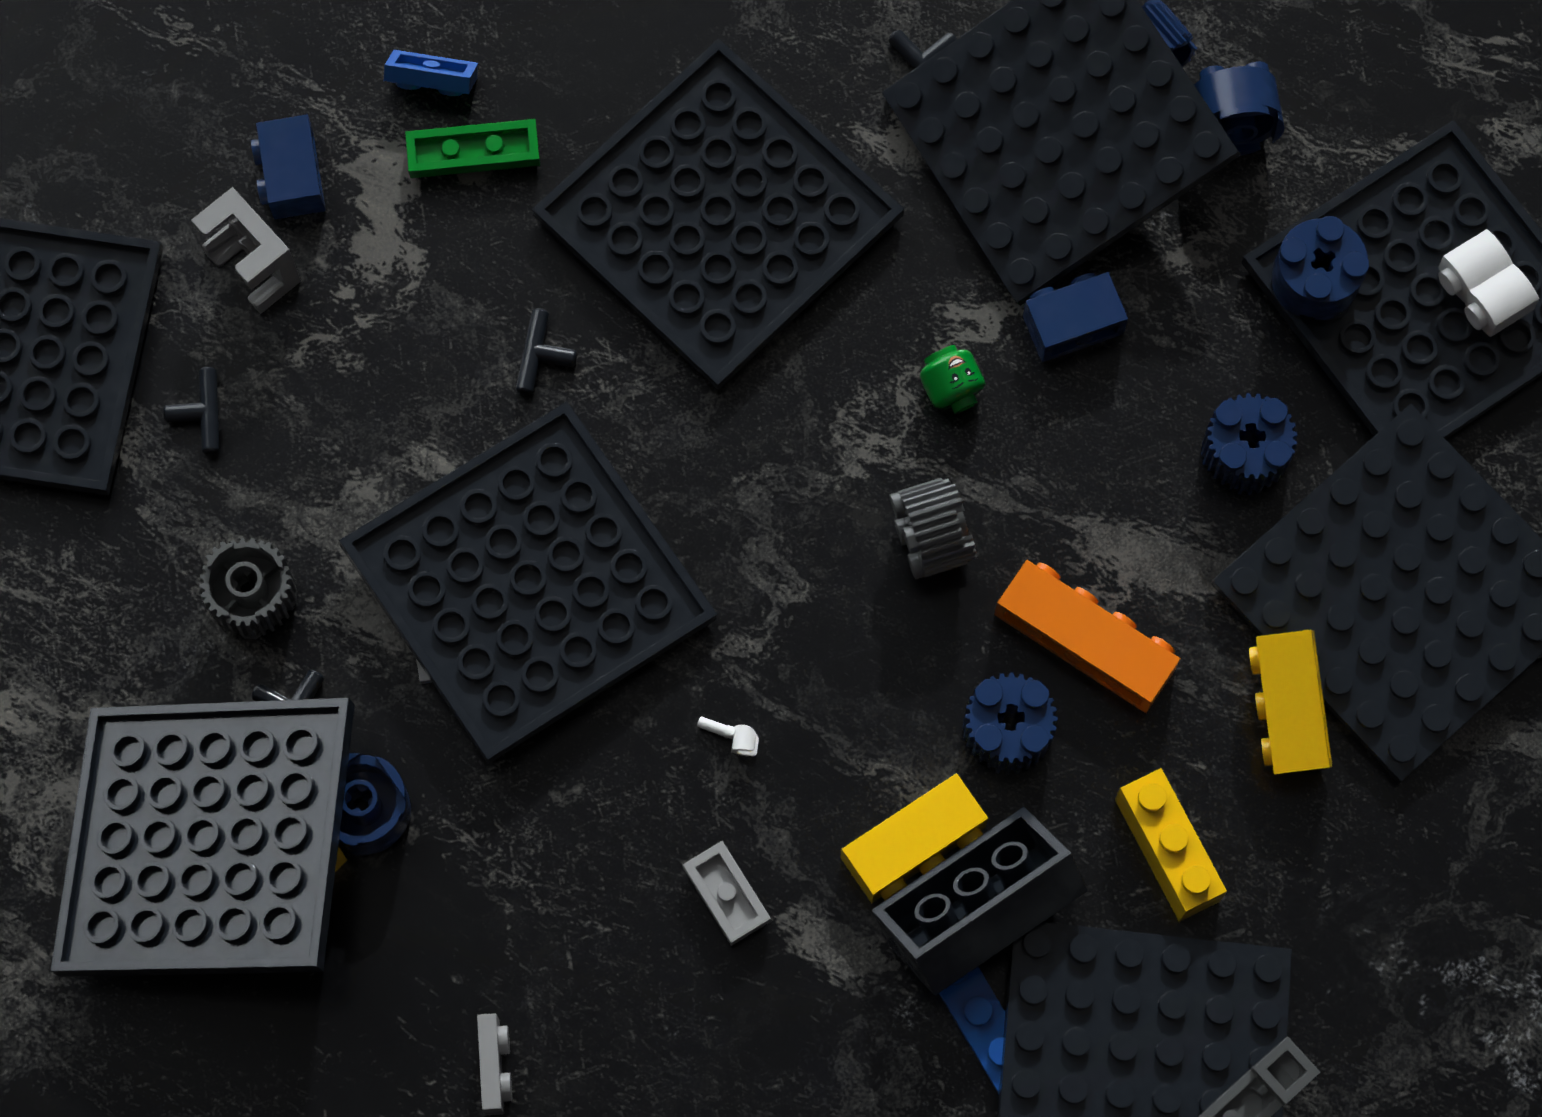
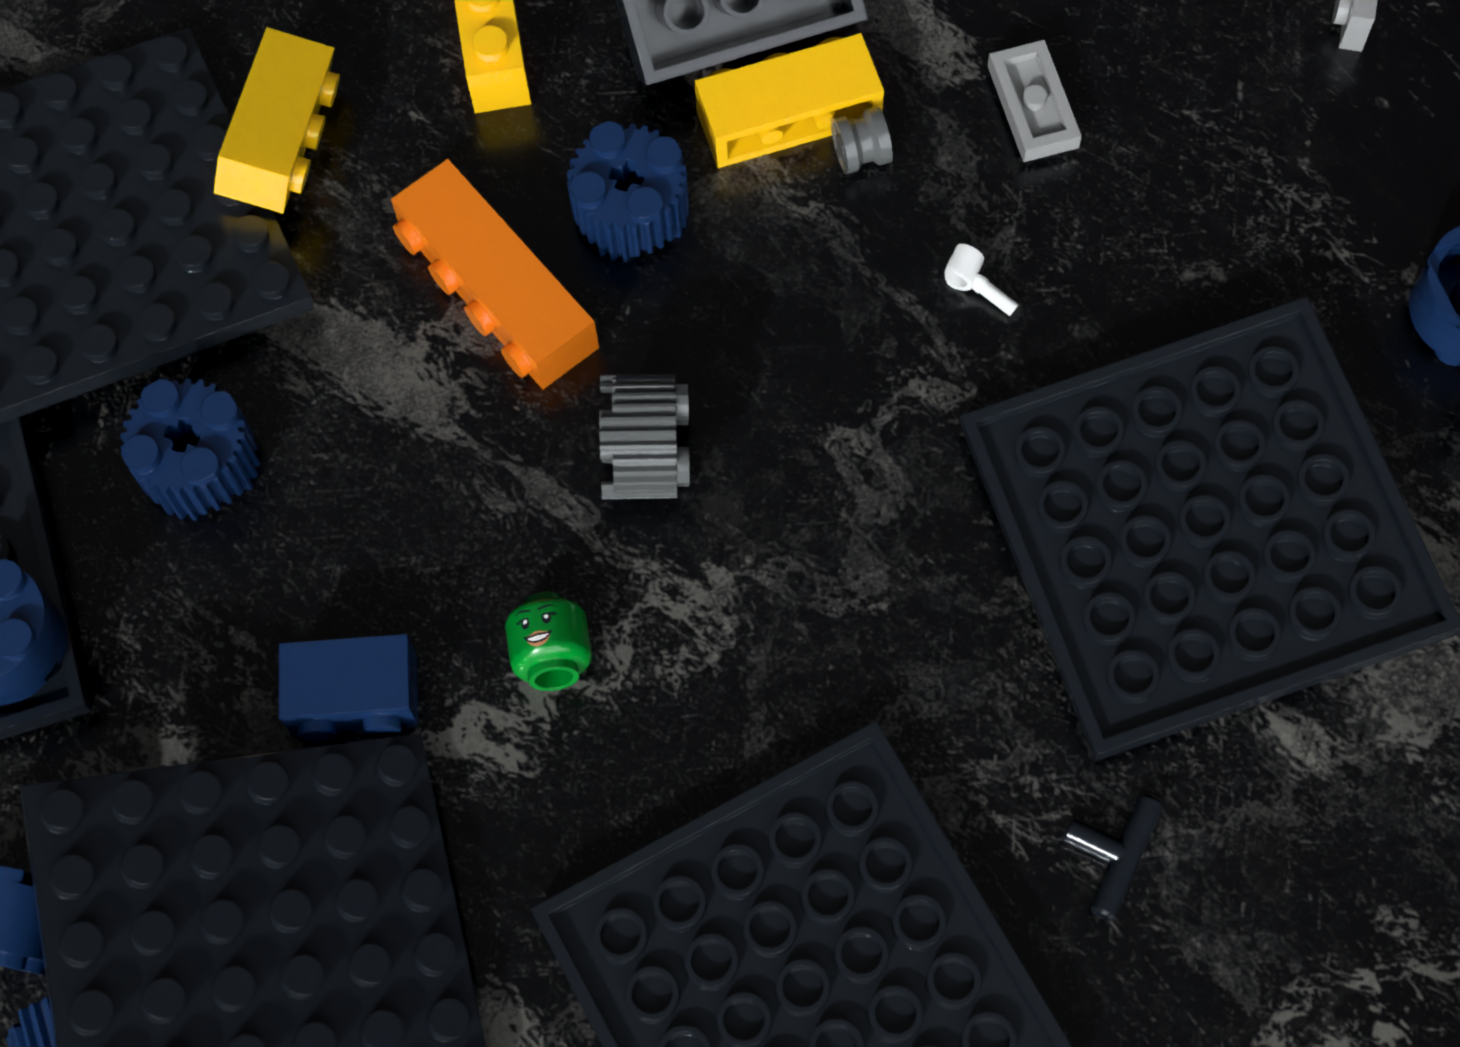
camera: 160 degrees left, 5 degrees down
(848, 818) = (861, 140): none -> dark grey wheel

